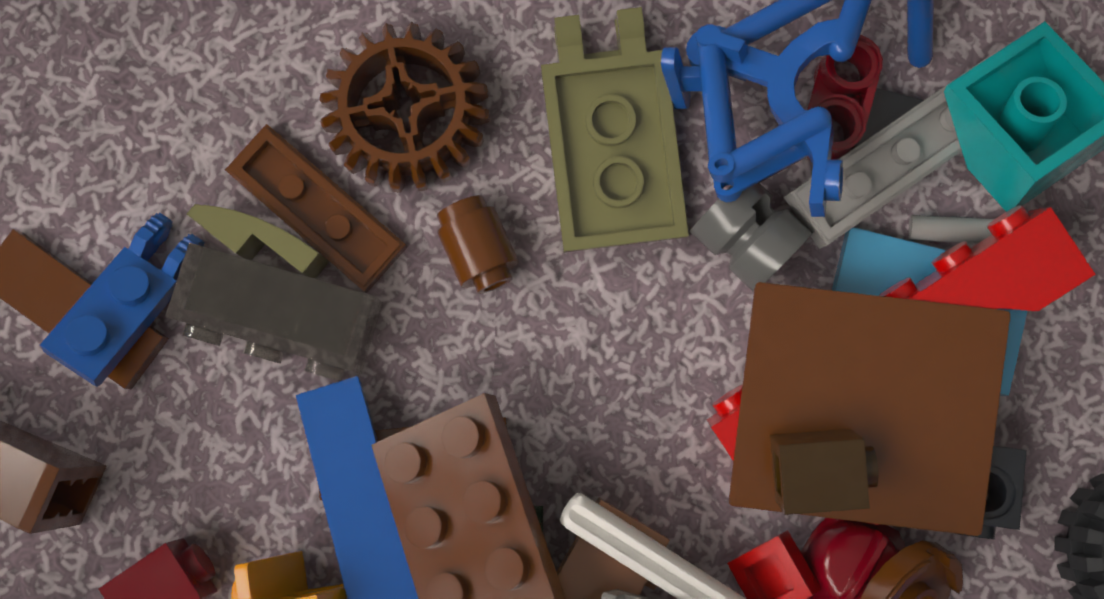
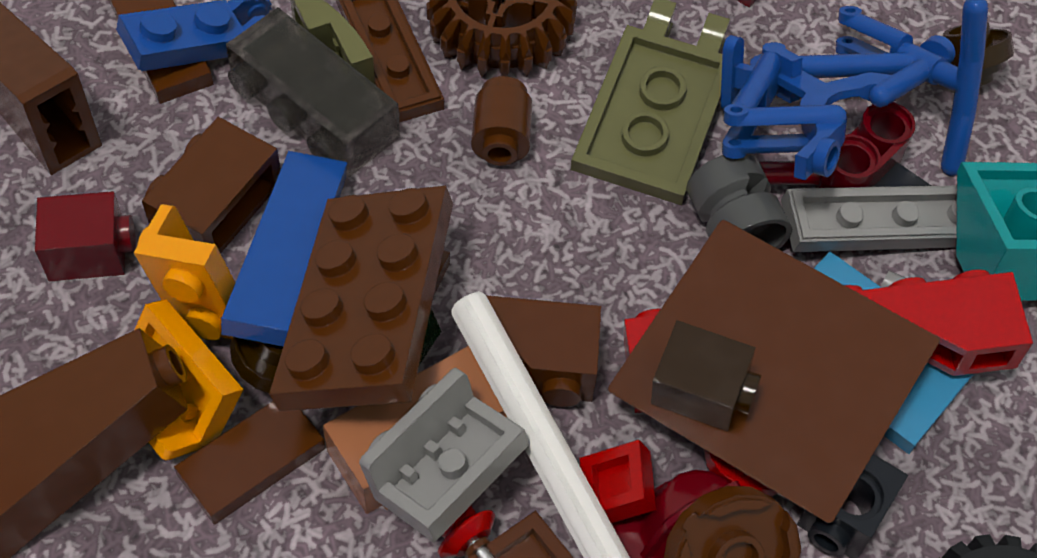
camera: 20 degrees right, 25 degrees down
(247, 475) = (217, 182): none -> reddish brown brick
(646, 476) = (555, 345): none -> reddish brown slope

